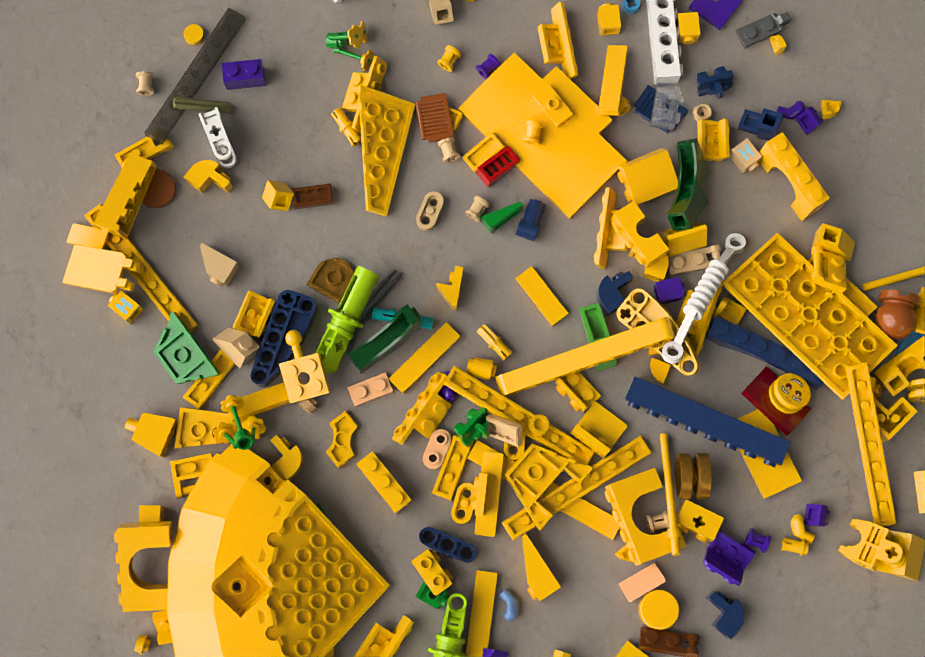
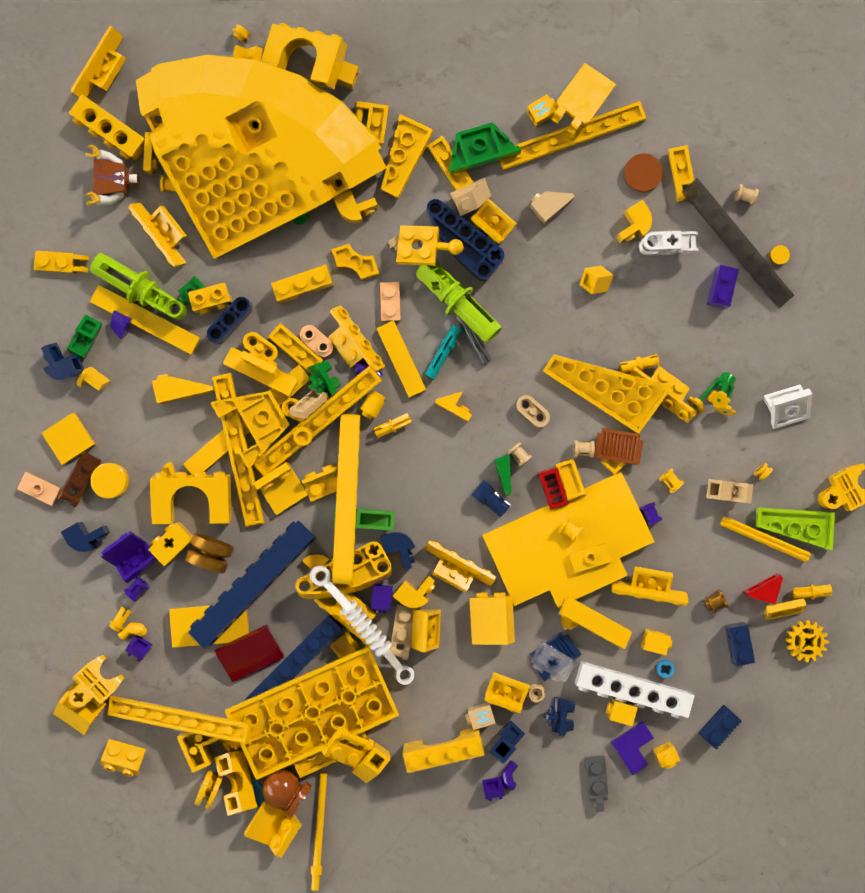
camera: 110 degrees right, 10 degrees up
(88, 236) = (618, 98): yellow slope -> none
(126, 196) = (641, 141): yellow wedge -> none
(152, 432) = (419, 99): yellow torso -> none
(201, 105) = (705, 239): olive axle -> none
(242, 437) = (379, 171): yellow plant -> none
(262, 401) = (412, 197): yellow tile -> none
(312, 196) = (584, 311): reddish brown plate -> none
(331, 278) = (502, 302): pearl gold tile -> none
(387, 339) = (426, 328): dark green arch -> none
(512, 609) = (158, 357): medium blue arm -> none
(541, 296) = (419, 483): yellow tile -> none
(642, 582) = (137, 475): light nougat slope -> none
(647, 249) = (422, 590): yellow arch -> none
(657, 522) = (186, 515): tan bush -> none
(673, 532) = (165, 517): yellow bar -> none
(690, 196) = (461, 650): dark green arch -> none
(778, 44) = (577, 789): yellow tile -> none
(789, 393) = (250, 667): yellow head -> none
(830, 108) = (498, 812): yellow tile -> none

